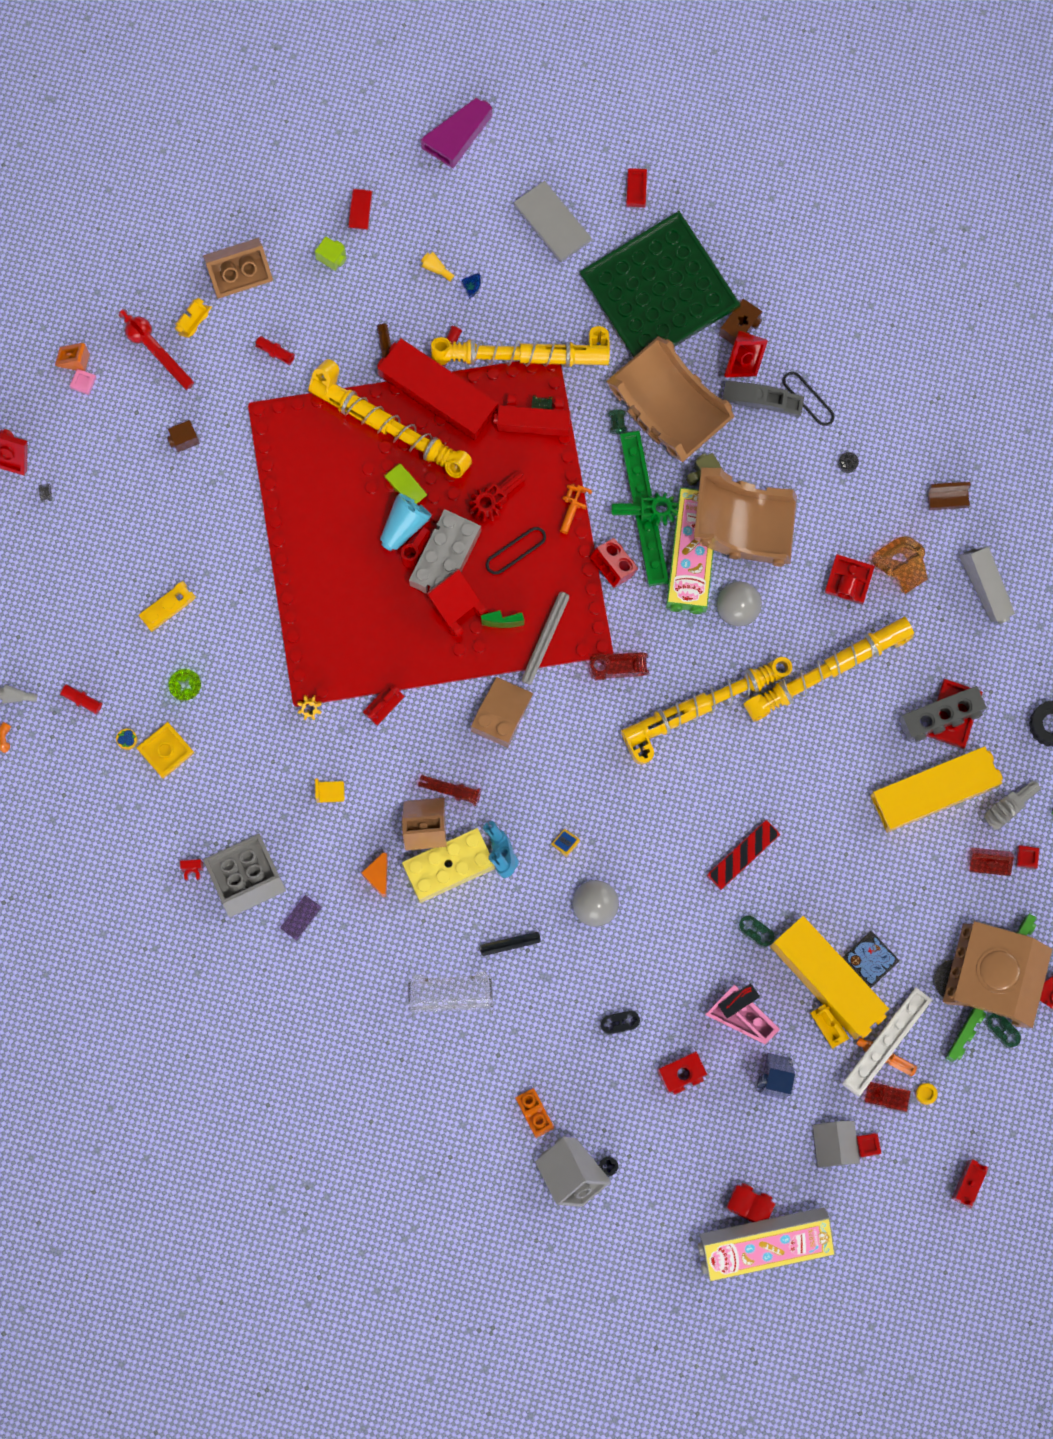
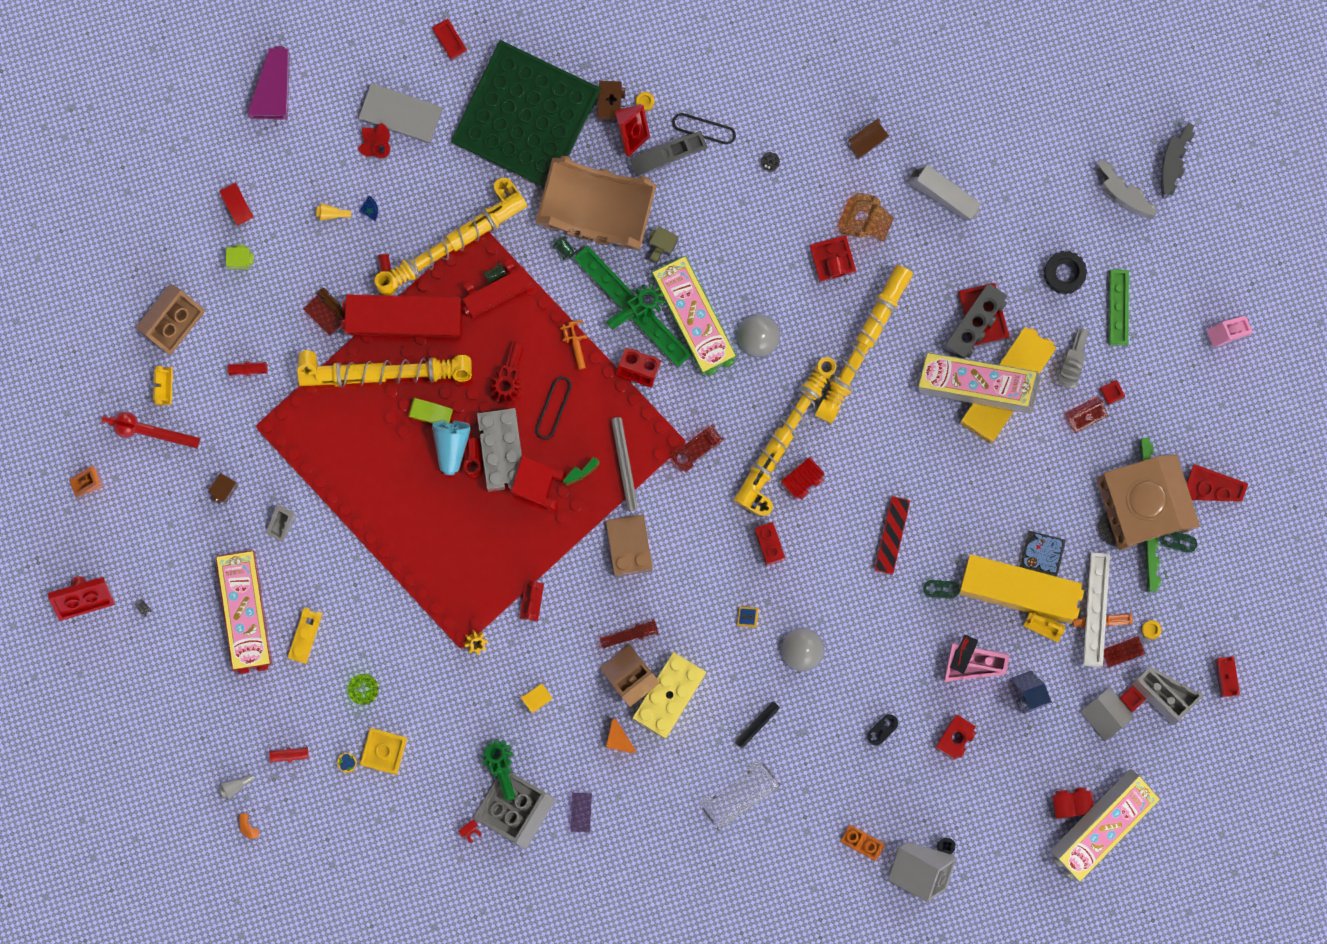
camera: 30 degrees left, 5 degrees up
(83, 381) = (108, 496): bright pink tile -> none
(128, 551) = (244, 612): none -> brick
(213, 496) = (281, 523): none -> light grey slope
(256, 829) = (500, 767): none -> green gear
(370, 347) = (323, 315): none -> clear red tile
(502, 851) = (706, 659): dark azure connector -> none
(515, 230) = (373, 140): none -> red plate
(627, 790) = (769, 544): none -> red brick
(695, 753) = (802, 479): none -> red brick
(745, 519) = (720, 264): medium nougat panel -> none
(774, 343) = (645, 99): none -> yellow tile
(902, 1161) = (1166, 695): none -> light grey wedge
(911, 768) = (978, 382): none -> brick

